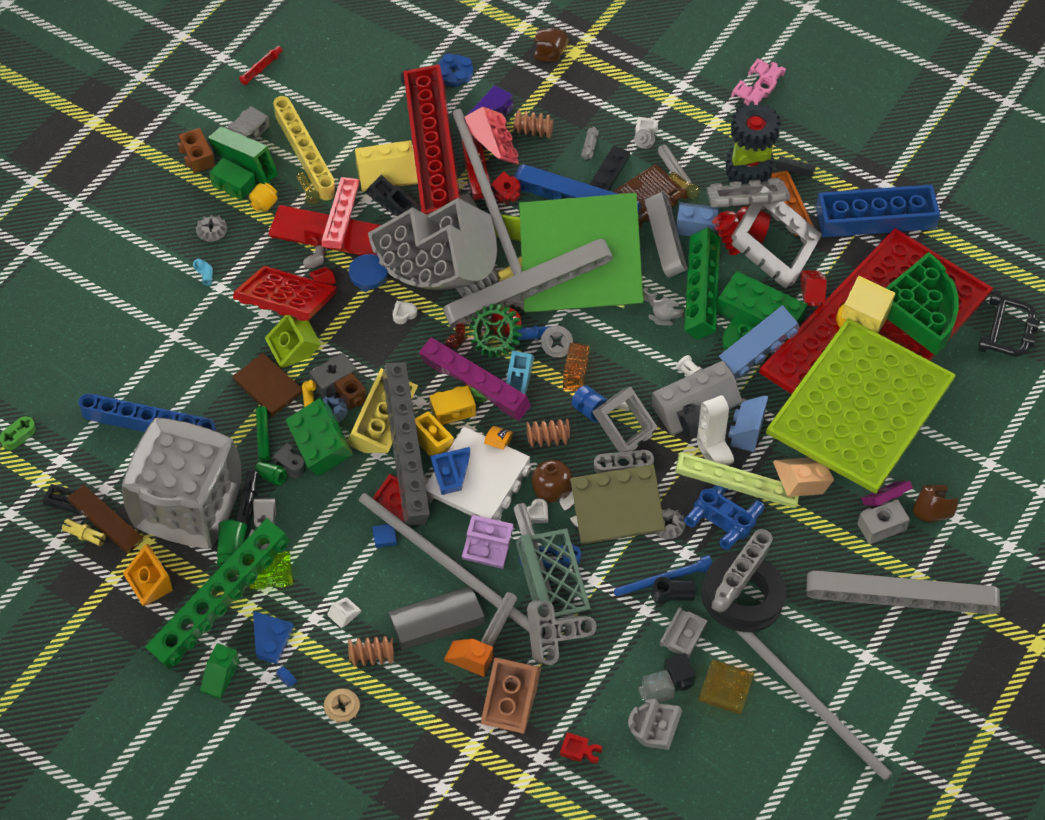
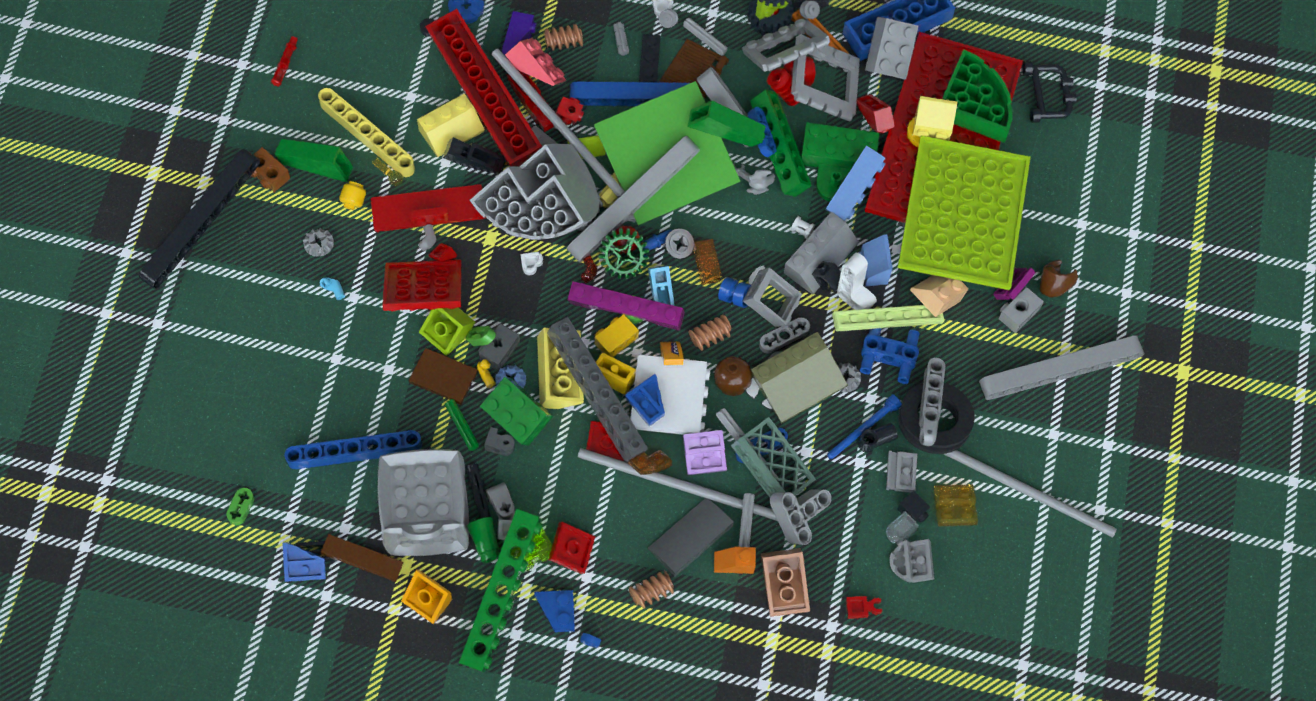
camera: 25 degrees left, 10 degrees up
(45, 503) = (302, 564): none -> wing
(84, 532) = (348, 577): light yellow pin -> none
(110, 169) = (199, 218): none -> black beam
(219, 670) = (531, 658): green slope -> none
(232, 179) = (315, 187): green brick -> none
(250, 123) = (305, 126): light grey brick -> none
(272, 473) = (489, 459): green cone -> none
(310, 582) = (571, 548): none -> red tile
(319, 358) = (481, 336): none -> bright green beam
(340, 213) = (434, 188): coral tile -> none
(343, 612) = (609, 562): white slope -> none
(346, 386) = (521, 349): reddish brown brick -> none
(347, 698) = (648, 637): tan gear -> none
(367, 272) = (482, 235): blue tile -> none
(384, 536) = (612, 479): blue tile -> none
(420, 530) = (650, 464): none -> clear orange slope
(538, 511) = (733, 406): white tile -> none
(649, 241) = (726, 123): none -> green slope
(686, 255) = (768, 145): none -> blue beam
(692, 189) = (730, 53): clear yellow bar -> none
(695, 218) = (746, 81): medium blue slope -> none
(789, 172) = (809, 9): none -> light grey wheel
(855, 229) = (891, 48): none -> light grey brick

